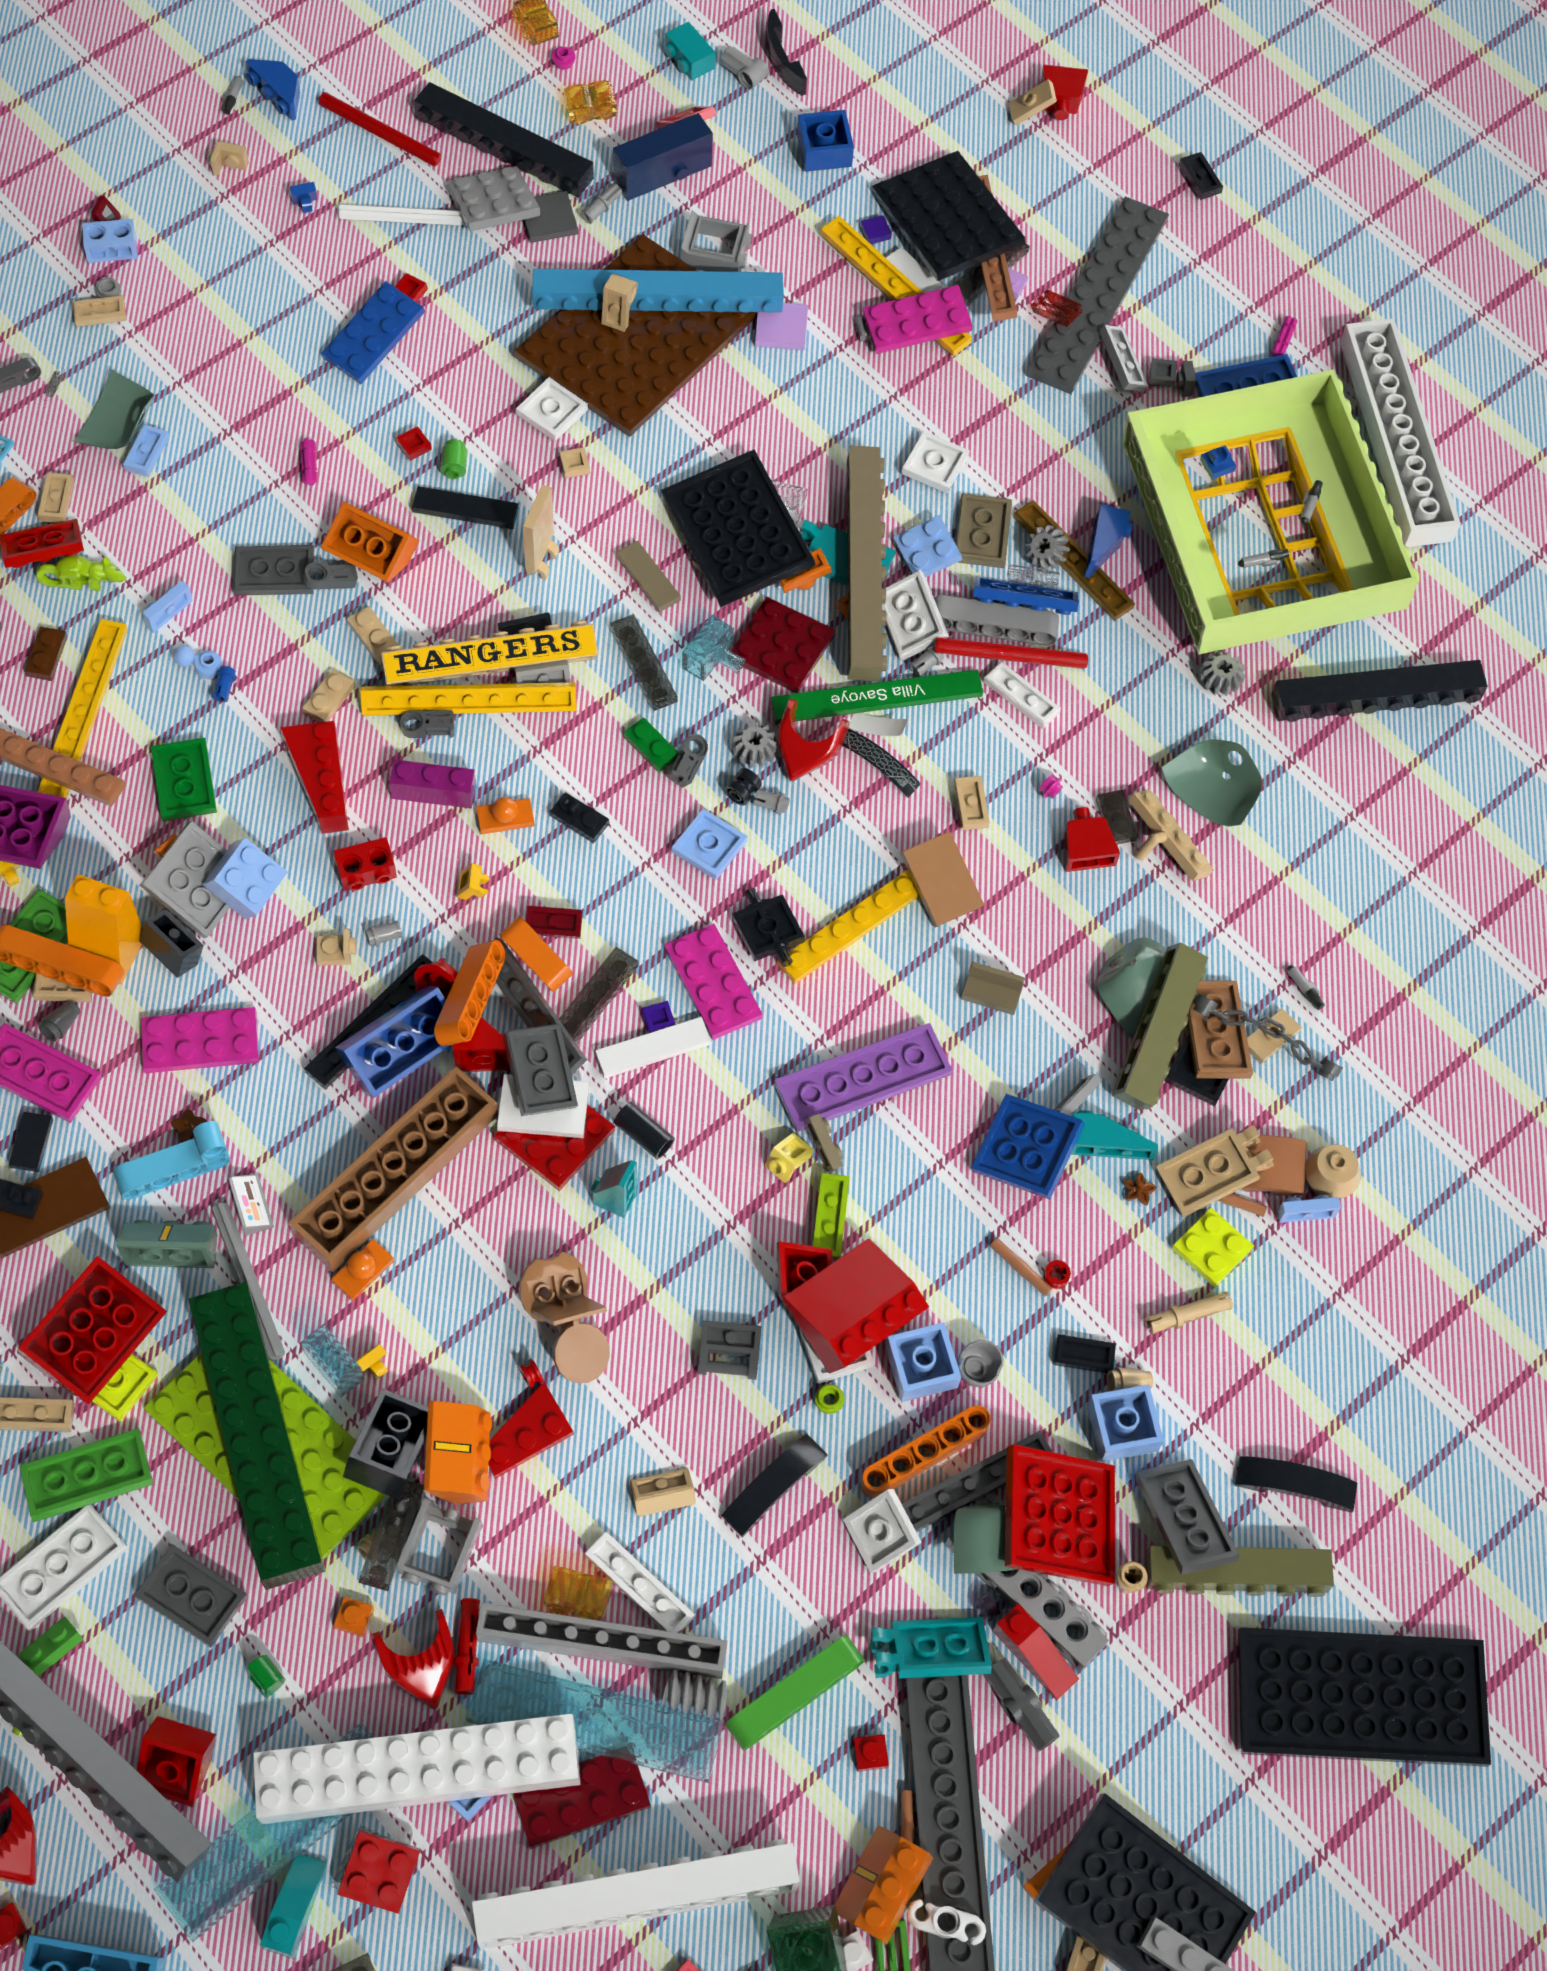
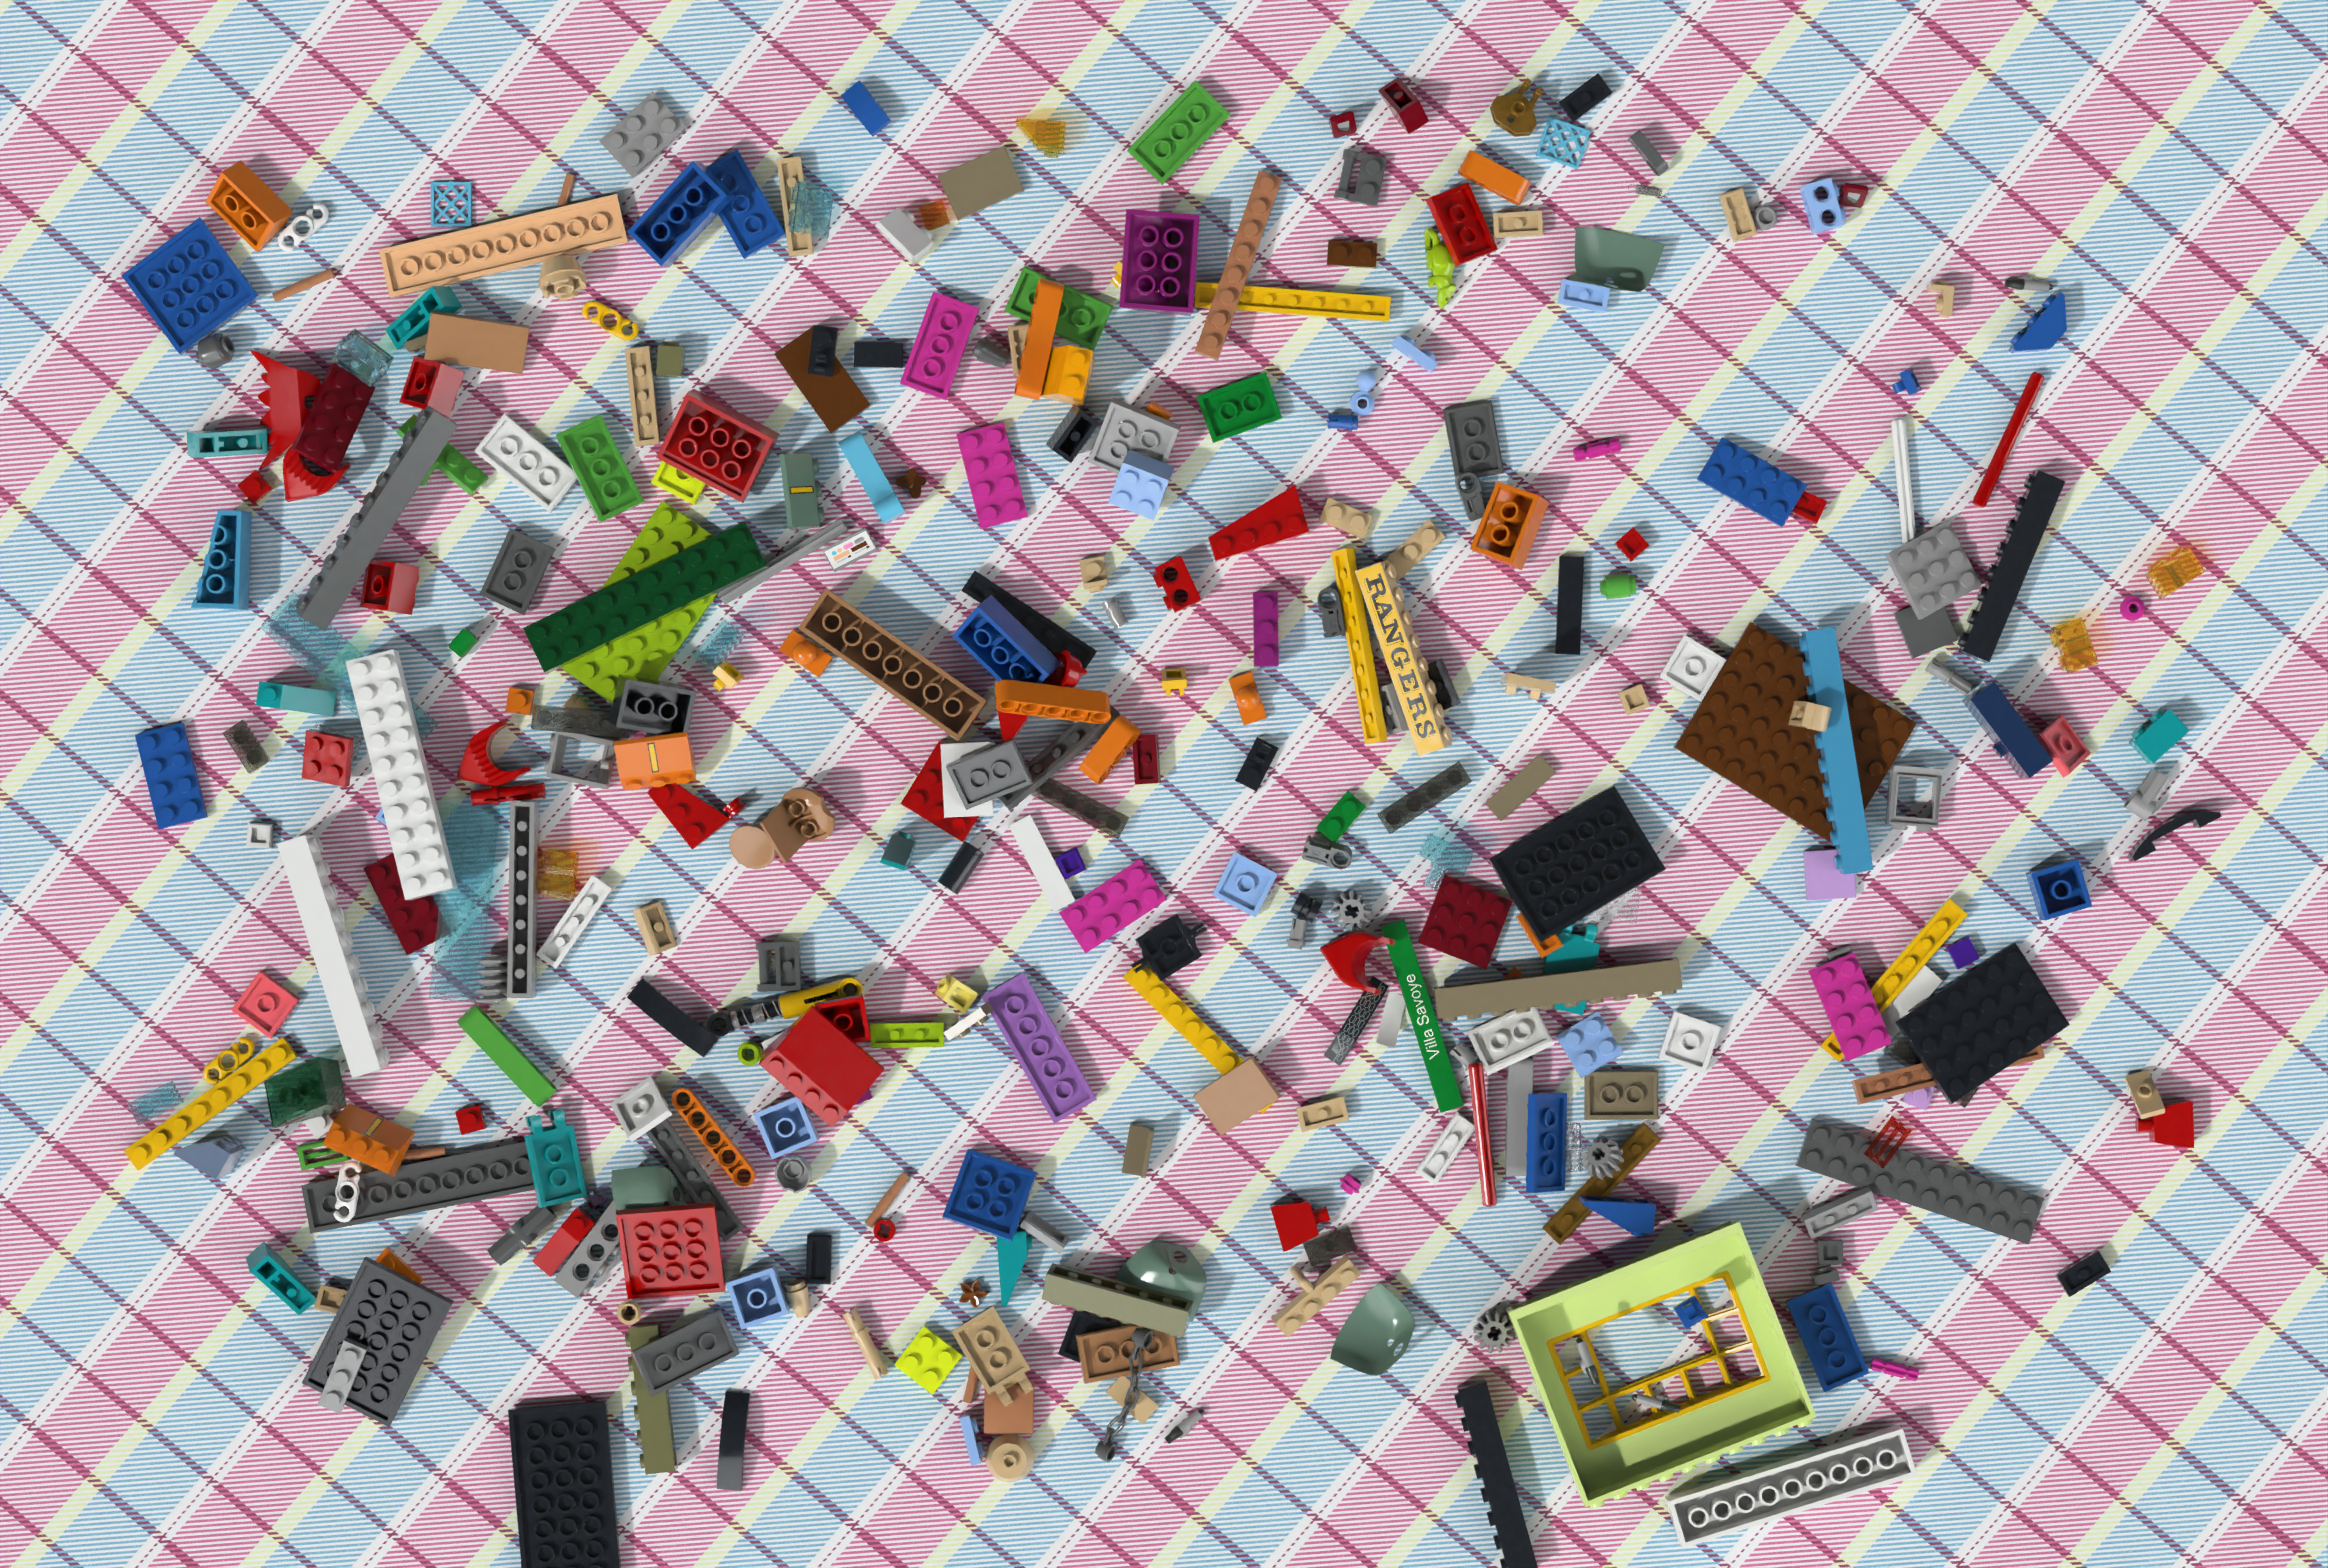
camera: 85 degrees right, 25 degrees up
(778, 1345) = (788, 1006): none -> piece

